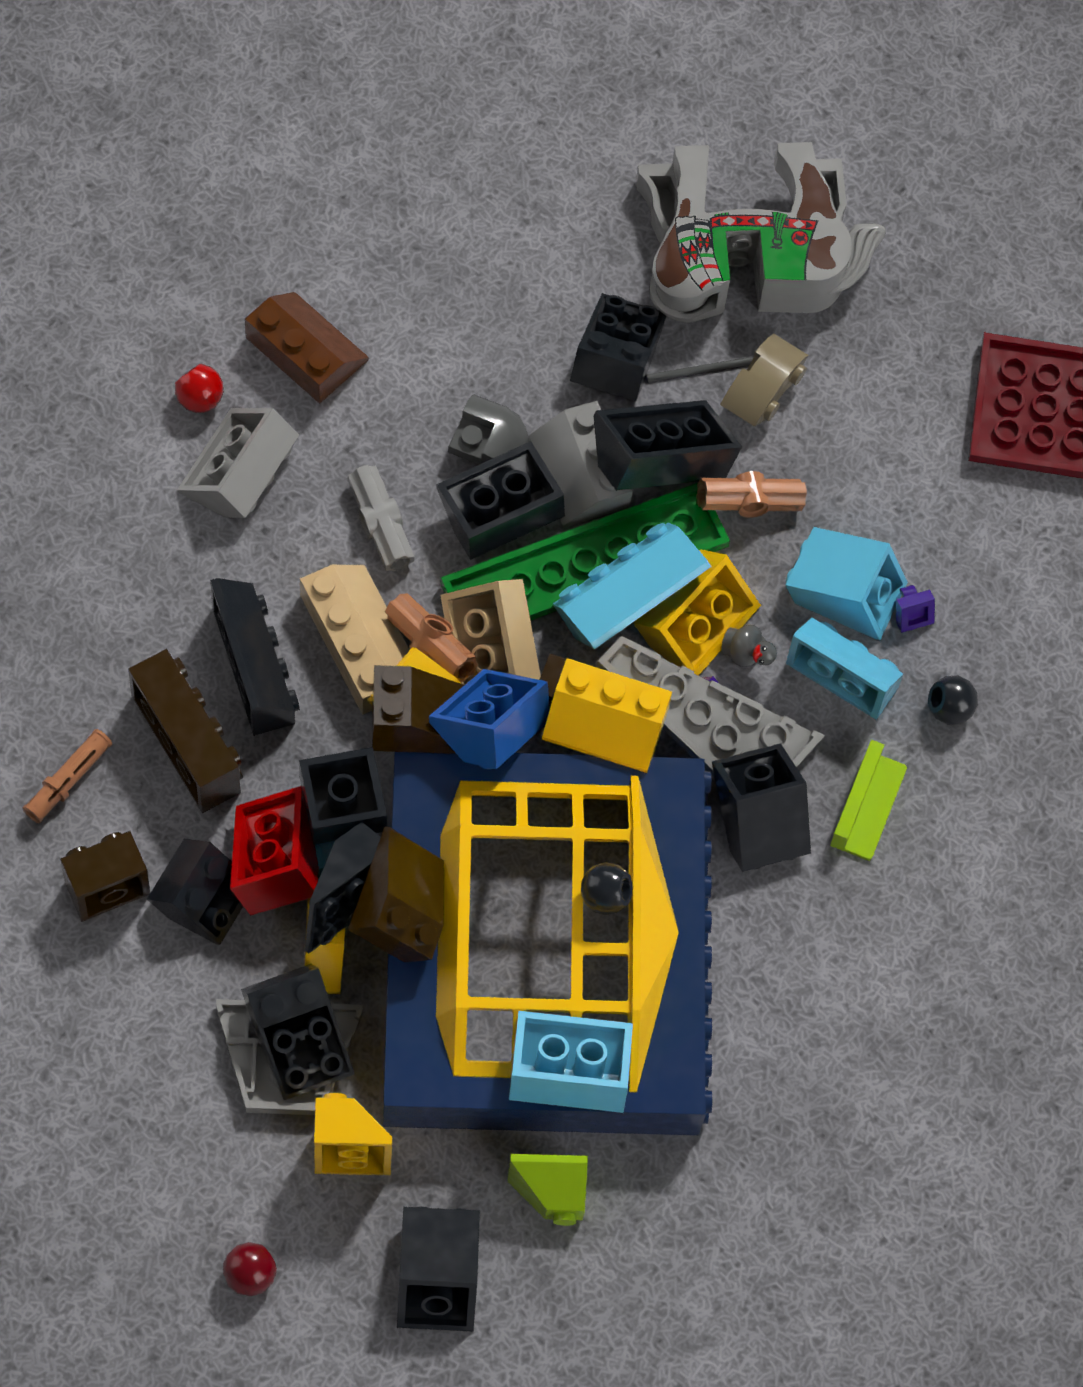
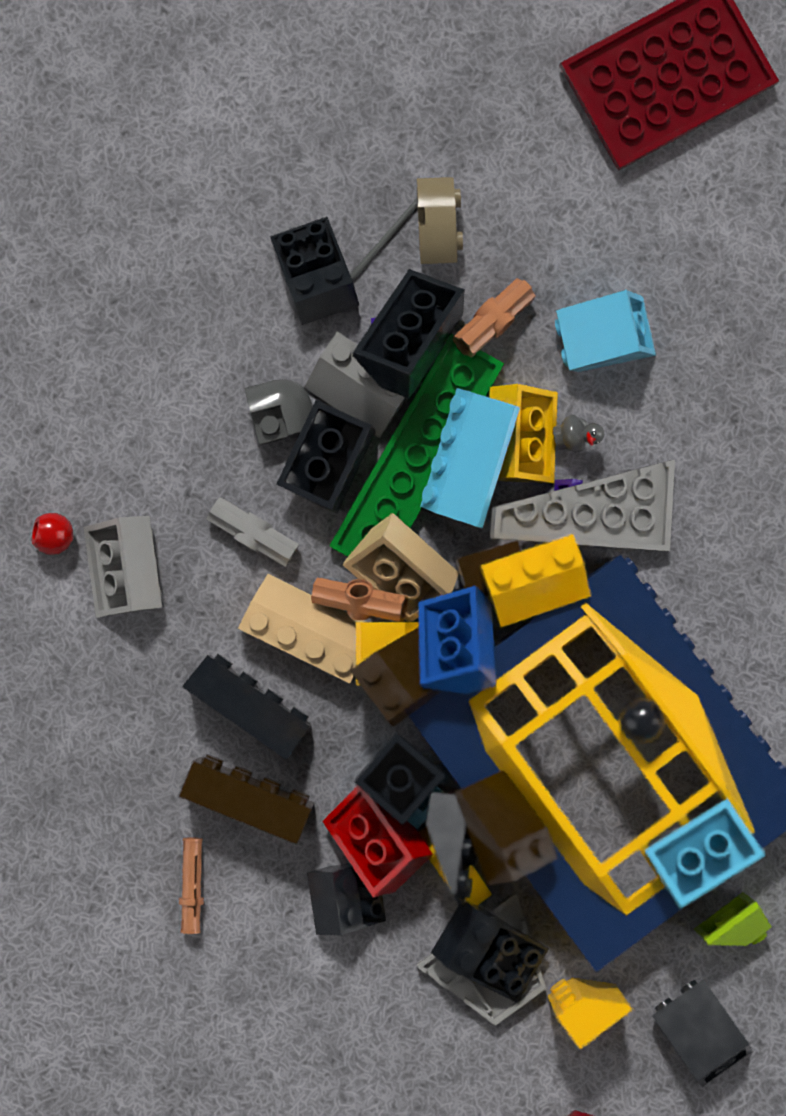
camera: 30 degrees left, 20 degrees up
(105, 875) = (279, 943): dark brown brick -> none
(303, 344) = (96, 439): reddish brown slope -> none
(763, 807) = (677, 549): black slope -> none
(797, 256) = (389, 109): light grey animal -> none
(843, 667) = (653, 397): medium azure slope -> none
(869, 803) = (737, 484): lime panel -> none
(914, 609) = (666, 316): dark purple tile -> none
(952, 700) = (742, 366): black piece -> none

